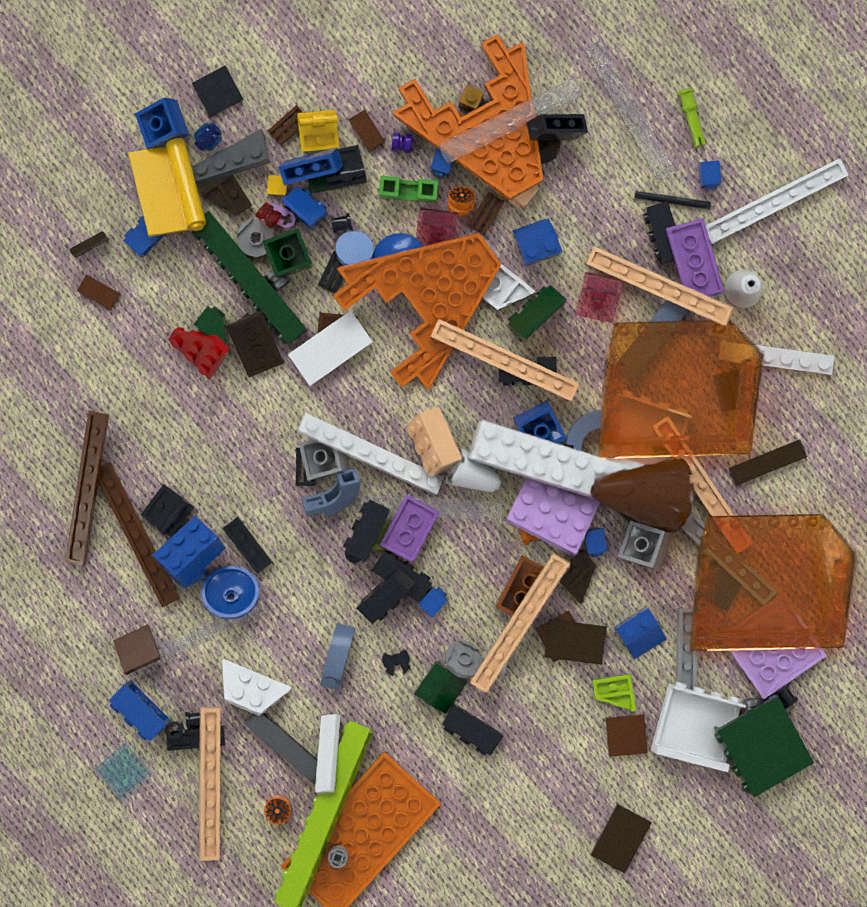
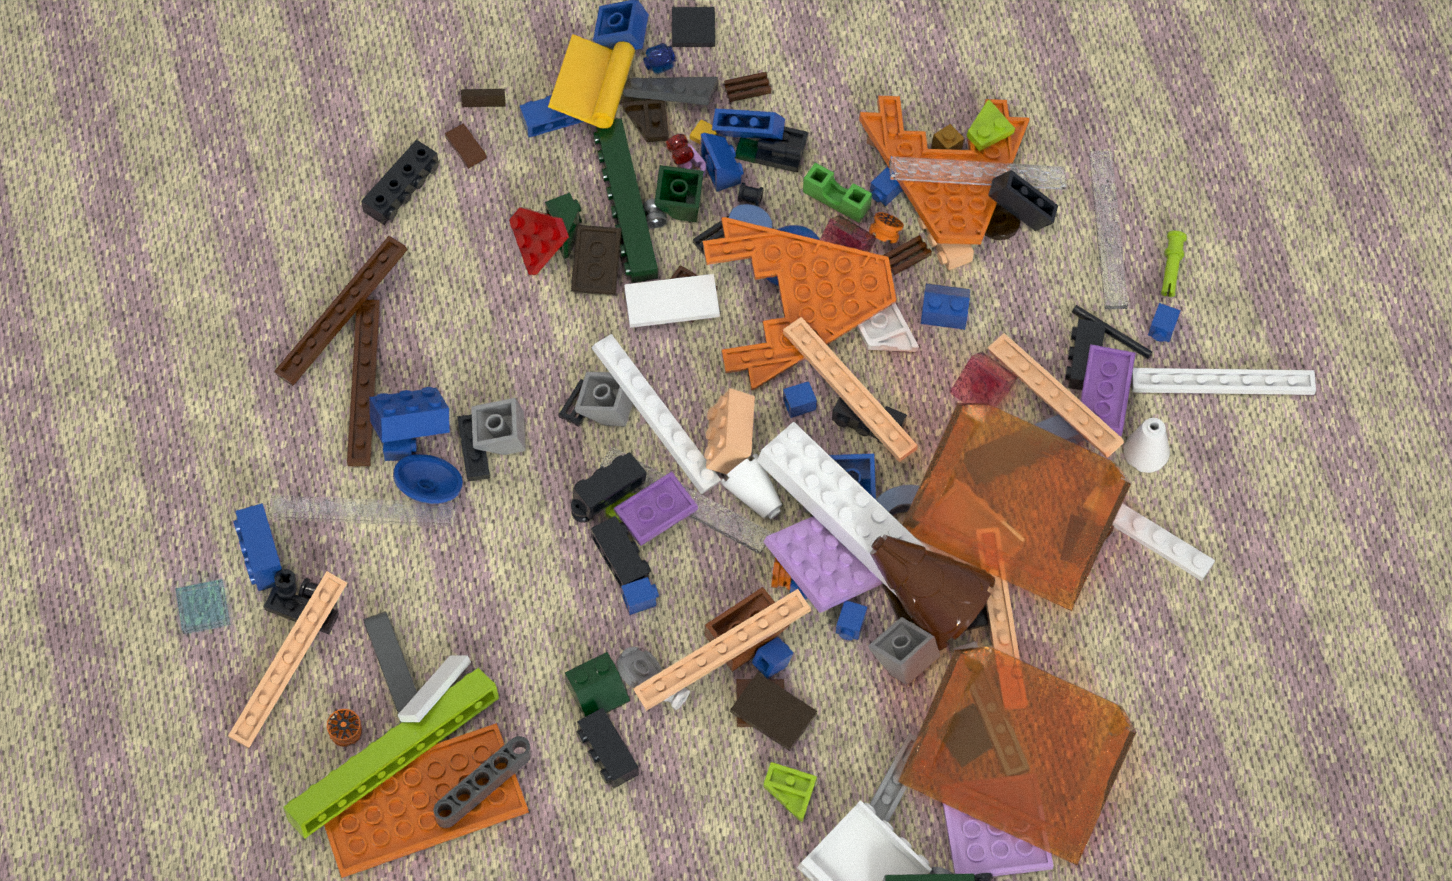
camera: 25 degrees right, 25 degrees down
(67, 352) = (400, 182): none -> black brick
(136, 649) = (294, 490): reddish brown tile -> none
(167, 510) = (410, 371): black plate -> none
(245, 237) = (644, 163): light grey plate -> none
(250, 689) = (390, 587): white wing -> none
(258, 522) = (499, 427): none -> light grey slope
(318, 130) = (775, 96): yellow plate -> none
(336, 498) = (597, 442): sand blue arch -> none
(337, 656) = (500, 599): sand blue arch -> none
(340, 853) = (383, 807): light grey wheel -> none
(367, 130) = (824, 127): reddish brown tile -> none
(386, 595) = (591, 558): black brick -> none
(395, 659) = (570, 640): black piece -> none
(397, 142) = (854, 151): dark purple wheel -> none
(400, 814) = (477, 792): none -> dark grey beam
(468, 381) = (799, 399): none -> blue panel
(497, 70) = (989, 127): none -> lime wing
(536, 312) = (909, 367): dark green slope -> none
(555, 602) = (772, 657): none -> blue brick
(578, 576) = (813, 647): dark brown wing -> none
(626, 735) = (777, 843): reddish brown tile -> none
(640, 632) = (851, 739): blue slope -> none
(767, 462) = (1086, 634): dark brown tile -> none

